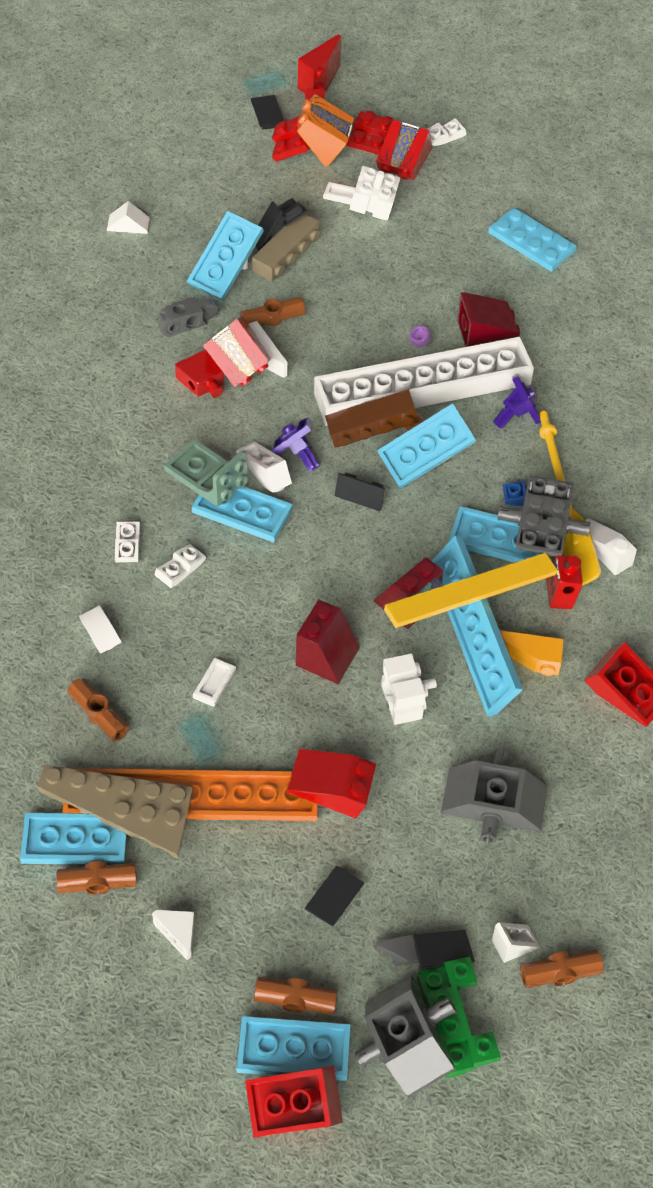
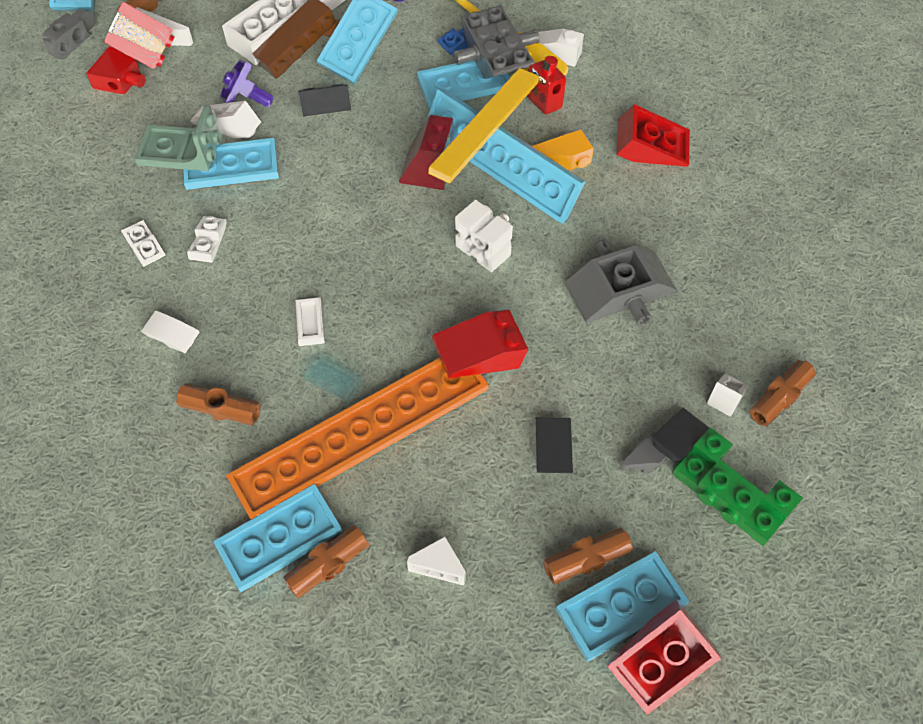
camera: 30 degrees left, 5 degrees up
(131, 805) = (310, 474): dark tan wing -> none
(325, 643) = (389, 233): dark red slope -> none
(407, 1036) = (738, 546): dark grey slope -> none

